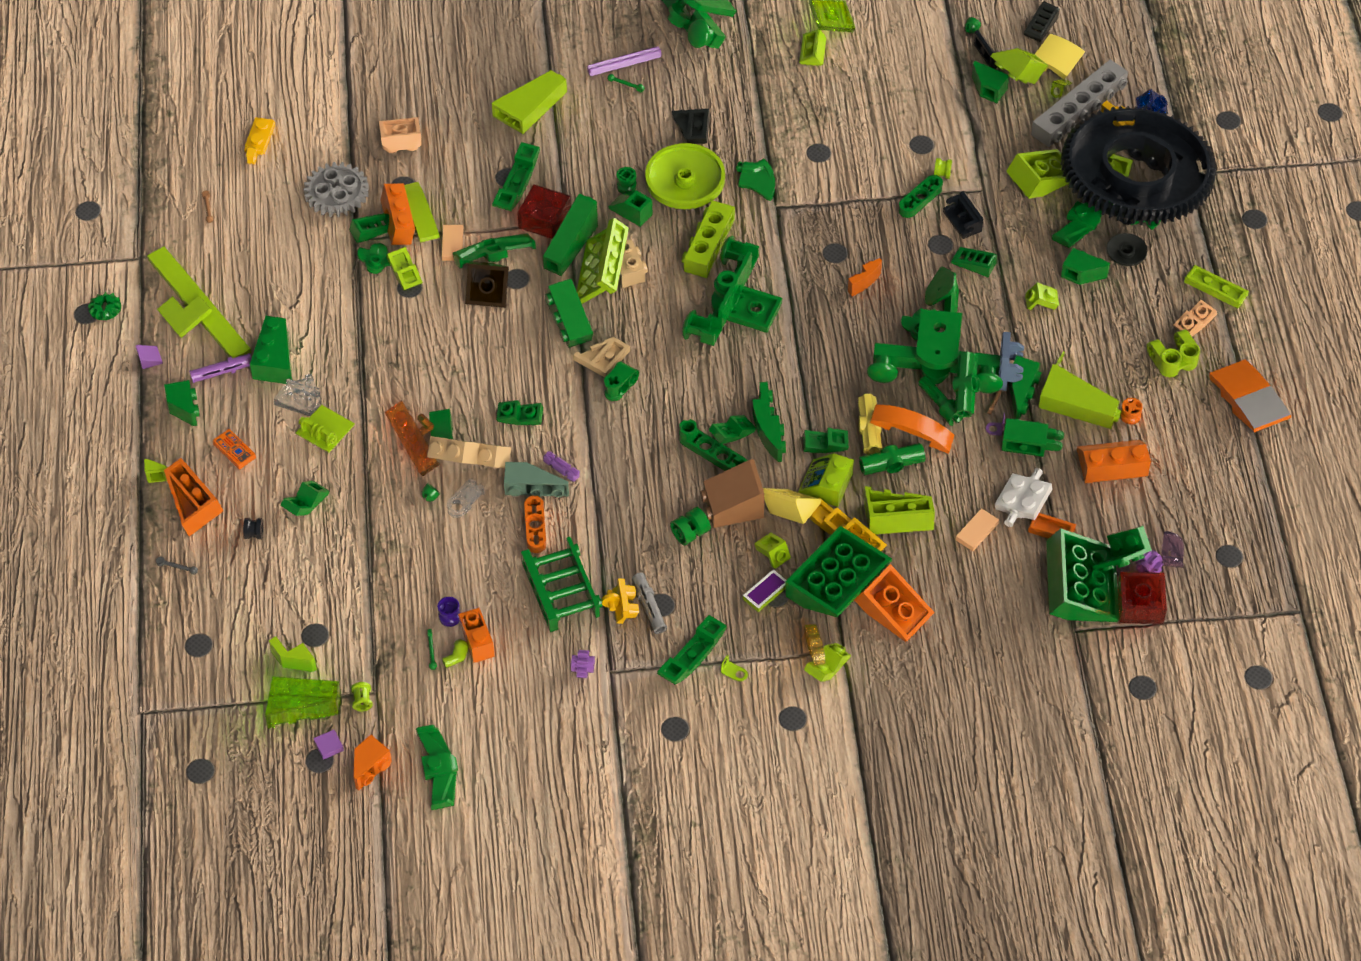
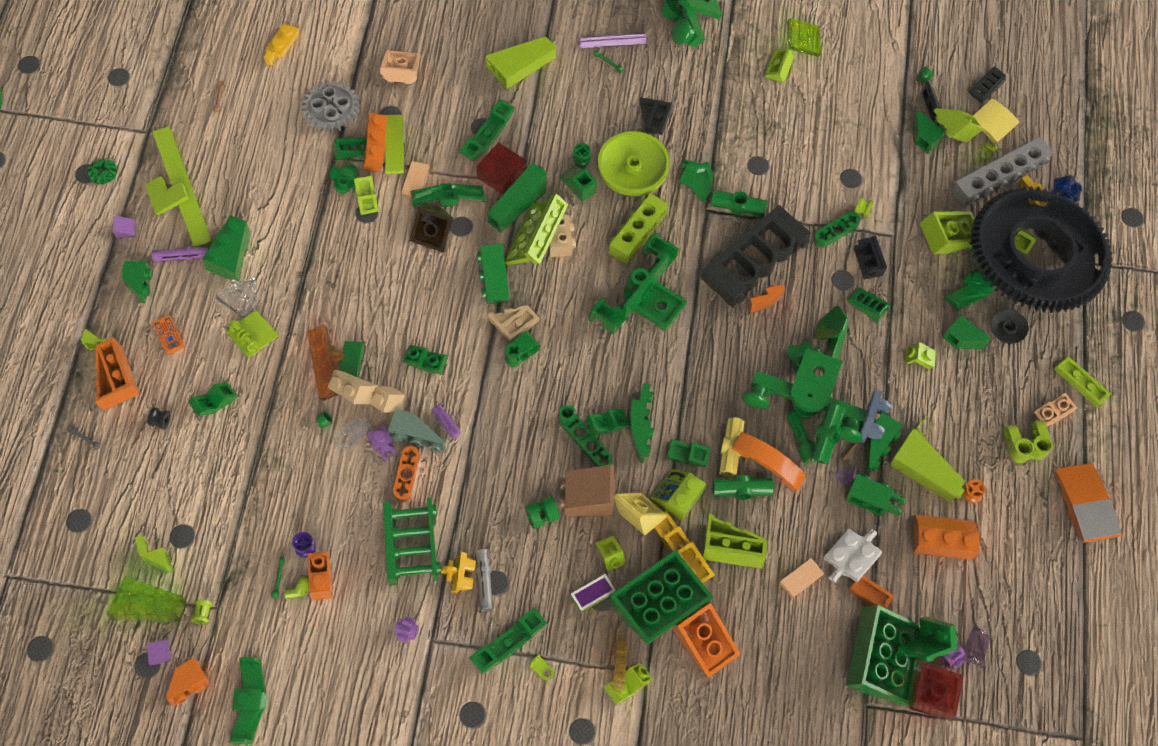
camera: 10 degrees right, 10 degrees up
(499, 499) = (381, 441): none -> medium lavender plate
(809, 191) = (749, 204): none -> green piece
(828, 275) = (733, 289): none -> pearl dark grey fence

